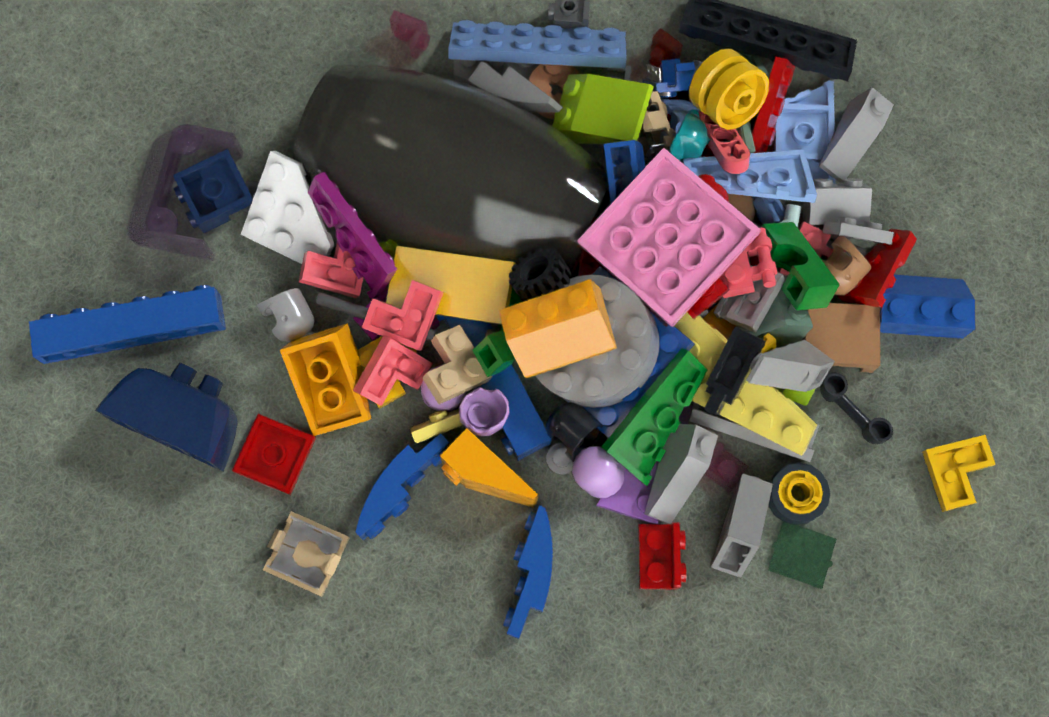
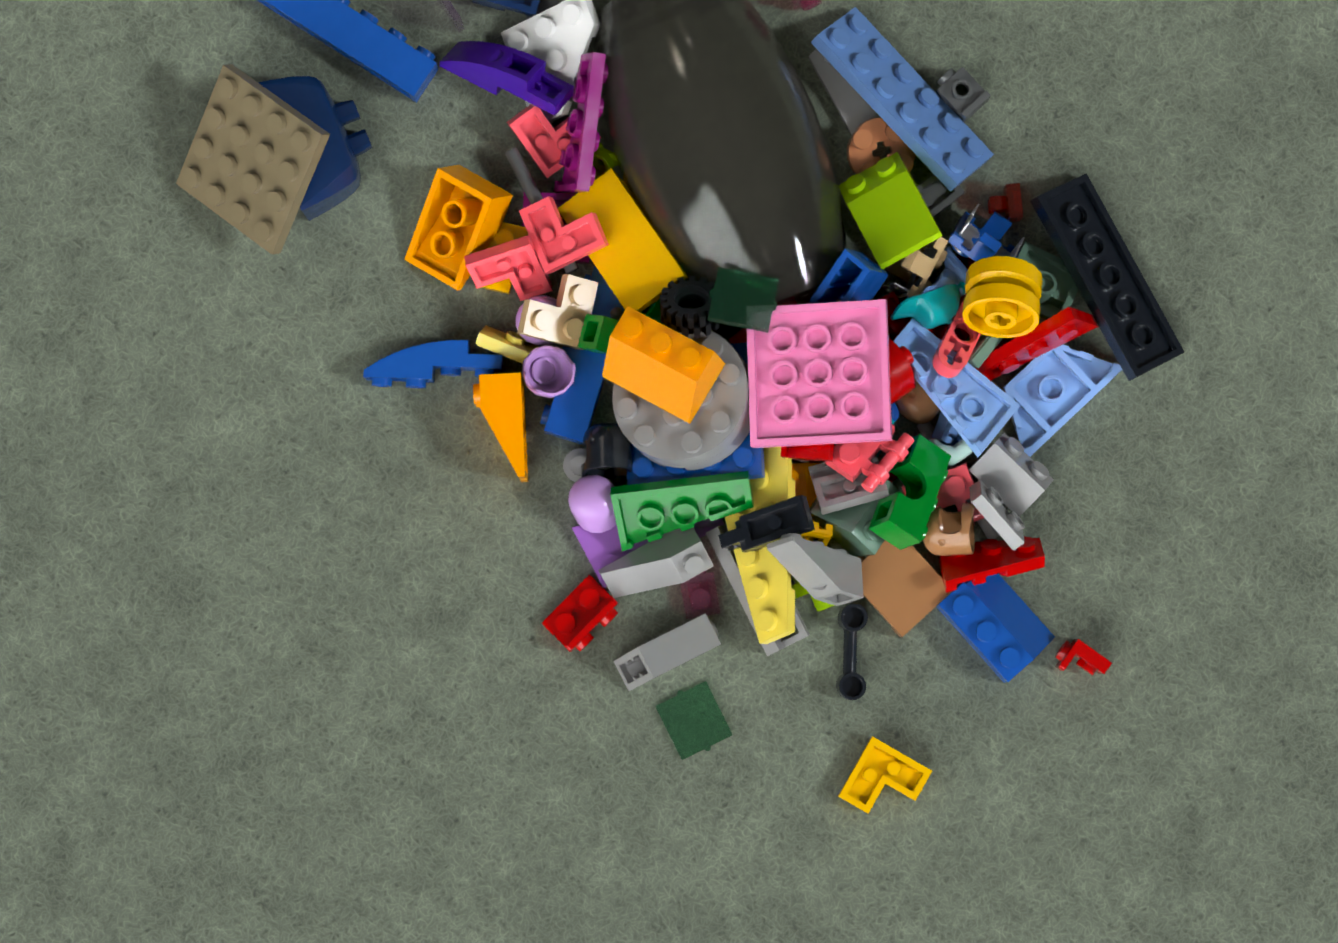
camera: 45 degrees right, 10 degrees up
(142, 459) = (252, 159): none -> dark tan plate
(259, 251) = (506, 68): none -> dark purple slope
(274, 454) = (360, 245): red tile -> none
(291, 313) = (476, 144): light grey helmet -> none
(305, 553) = (312, 348): piece -> none
(513, 88) = (837, 120): light grey slope -> none
(535, 559) = (483, 524): blue slope -> none
(571, 235) = (743, 299): none -> clear green piece
(814, 487) = (756, 666): wheel -> none
(855, 133) = (1088, 431): light grey slope -> none
(995, 272) = (1088, 660): none -> red bracket

